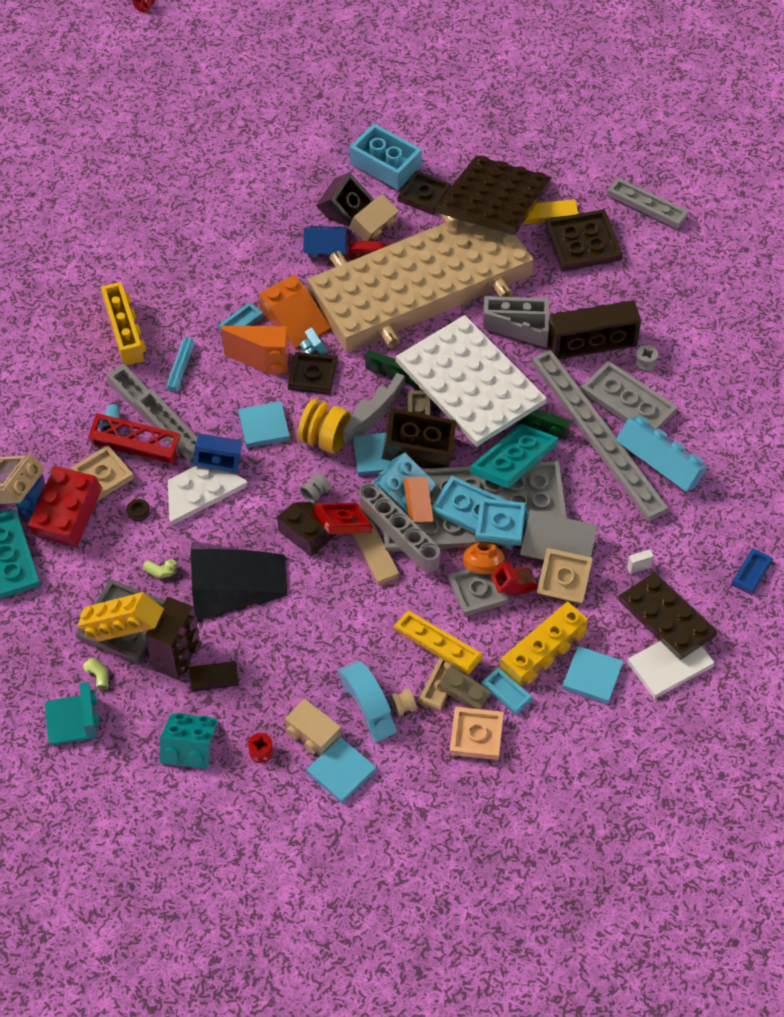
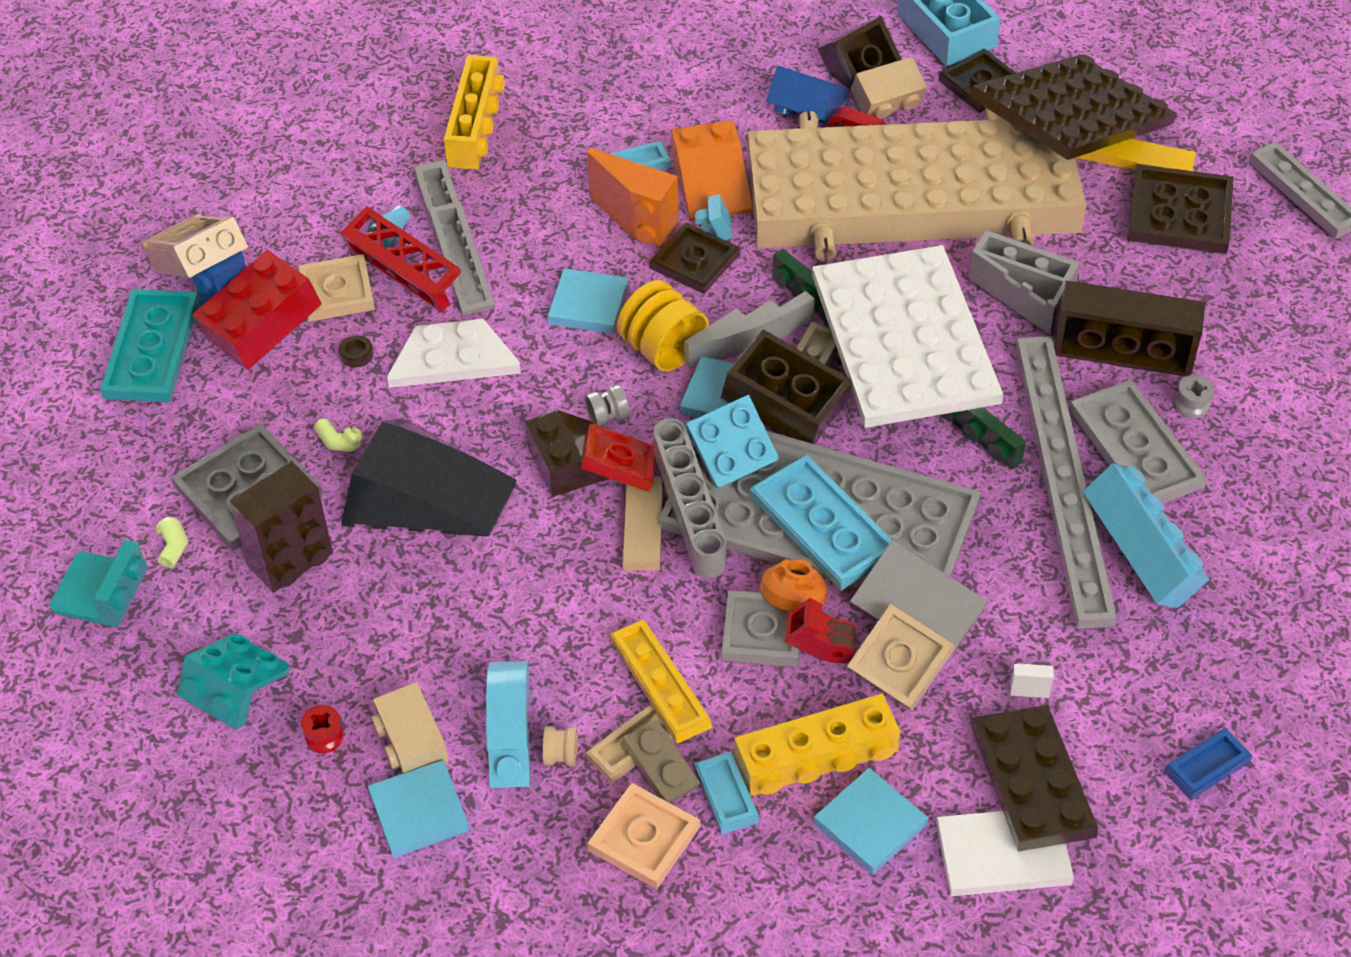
camera: 25 degrees right, 5 degrees down
(120, 617) = (218, 467): yellow brick -> none
(180, 364) = (522, 188): medium azure axle -> none
(213, 676) = (321, 605): dark brown tile -> none
(217, 453) = (498, 312): blue brick -> none
(418, 500) = (736, 469): orange tile -> none
(500, 521) = (841, 542): medium azure tile -> none
(514, 455) = (914, 459): teal plate -> none

